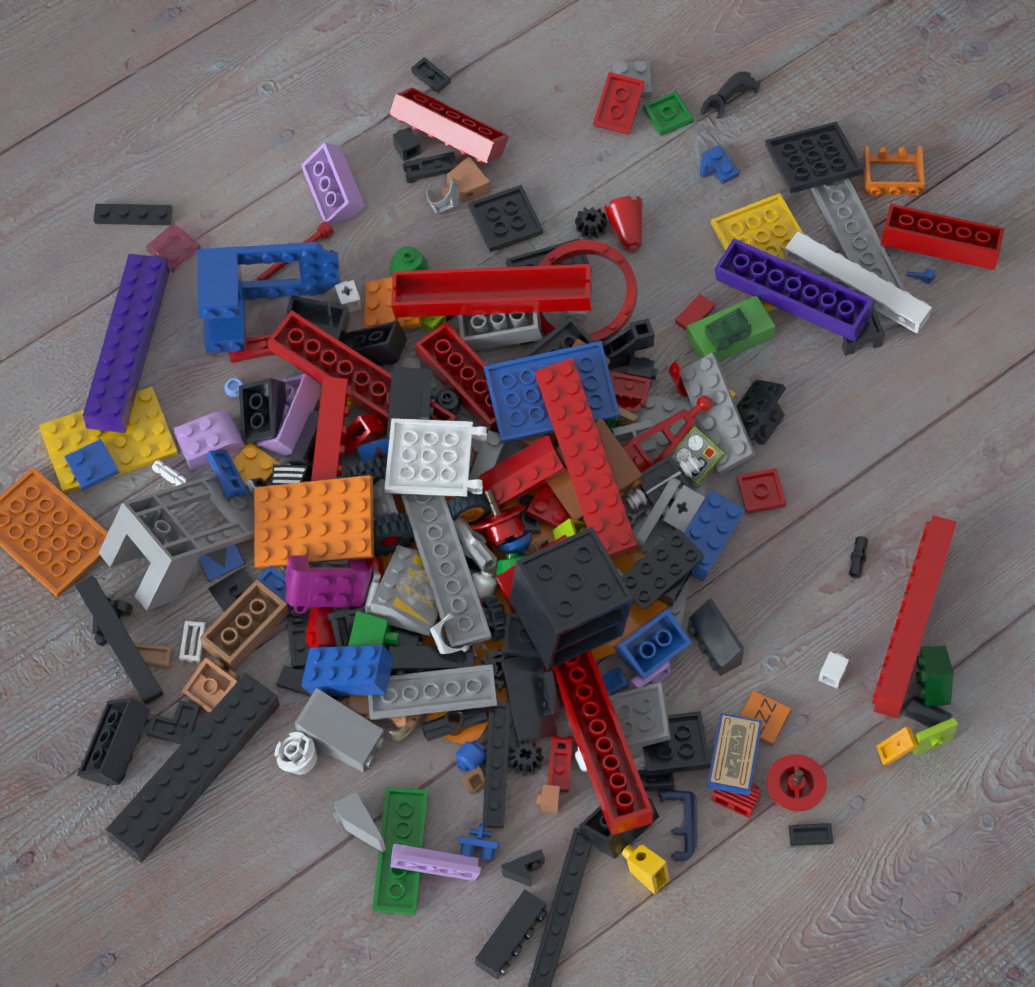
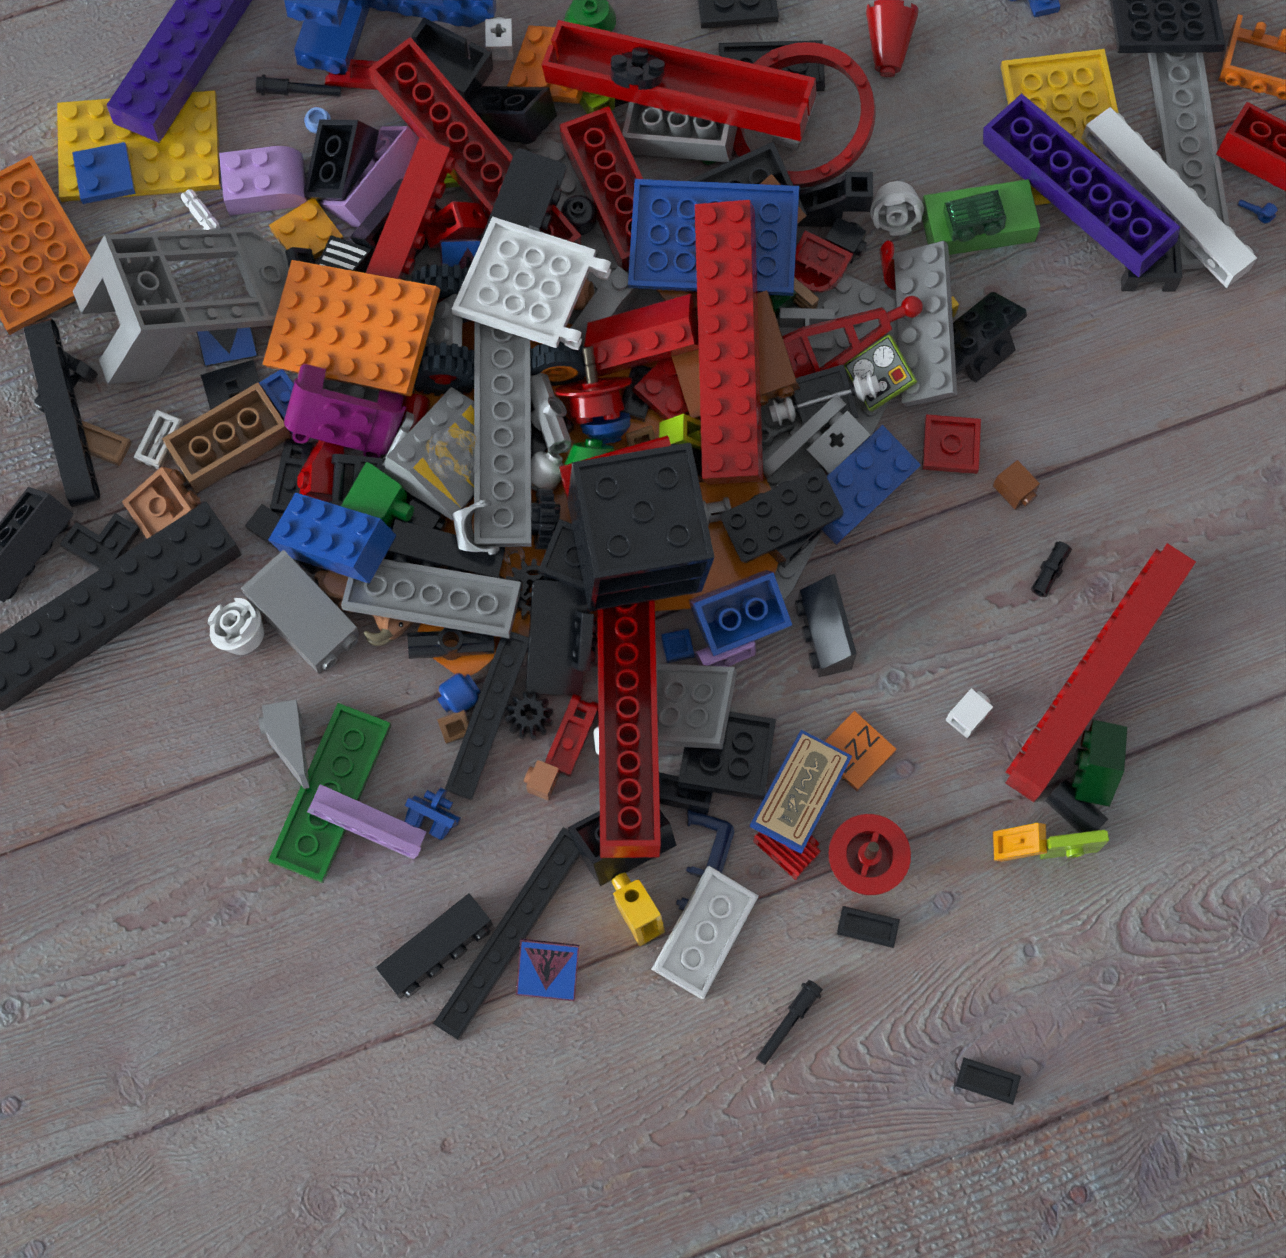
camera: 15 degrees right, 10 degrees up
(202, 370) = (284, 87): none -> black pin
(227, 473) = (267, 231): blue plate -> none
(461, 290) = (637, 69): none -> black plate
(518, 868) = (471, 861): black slope -> none
(591, 222) = (844, 23): black gear -> none
(596, 926) = (547, 969): none -> piece
(671, 339) = (896, 208): none -> white cone
(695, 311) = (942, 179): red tile -> none
(698, 870) = (705, 932): none -> white tile
(779, 905) = (797, 1010): none -> black pin
(816, 506) = (1016, 485): none -> dark orange brick
(927, 914) = (988, 1081): none -> black tile

